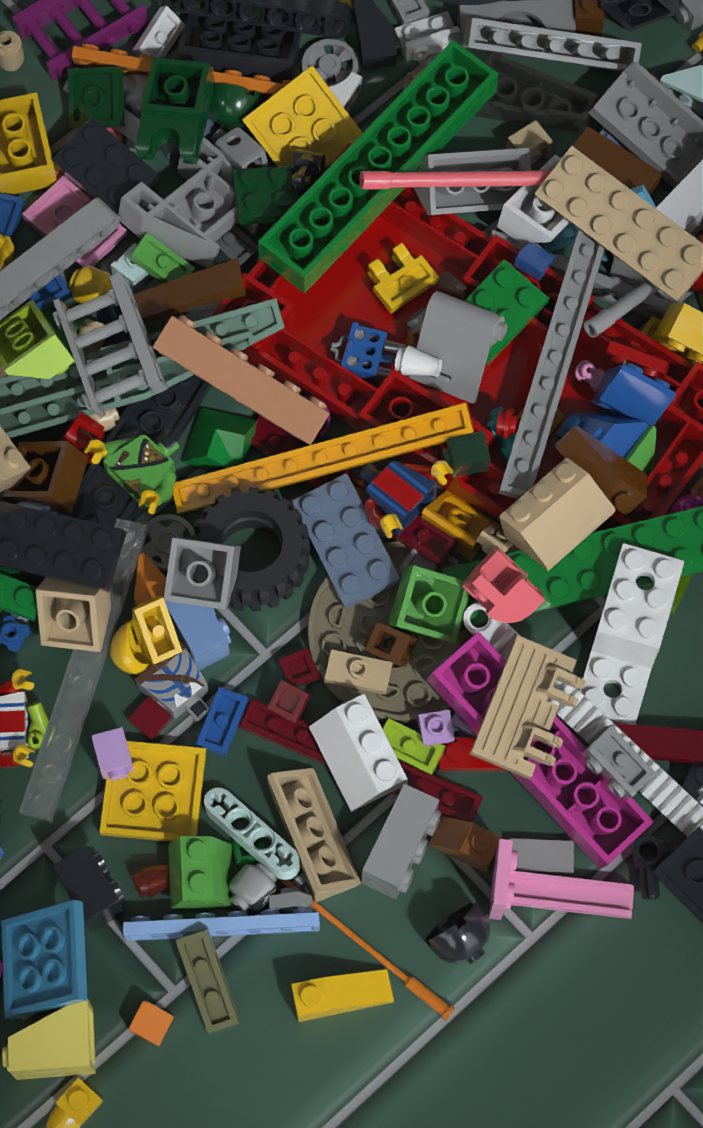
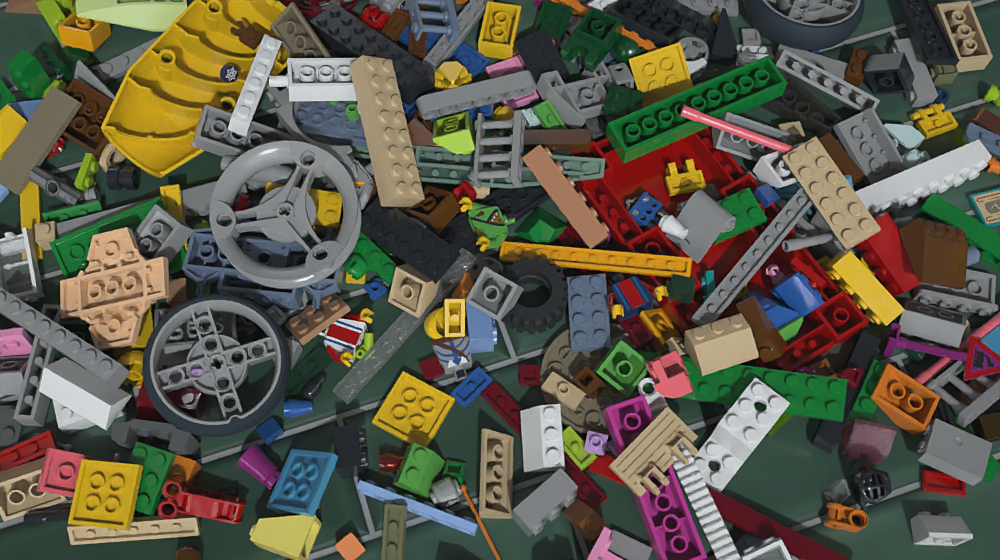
camera: 25 degrees right, 5 degrees down
(113, 754) = (398, 379): lavender brick -> none
(255, 830) = (460, 459): light aqua beam -> none
(289, 701) = (515, 391): dark red plate -> none
(290, 899) = (464, 509): light grey plate -> none
(306, 169) = (653, 95): black axle -> none
(507, 423) = (712, 280): red plate -> none
(618, 764) = (698, 511): light grey bracket -> none

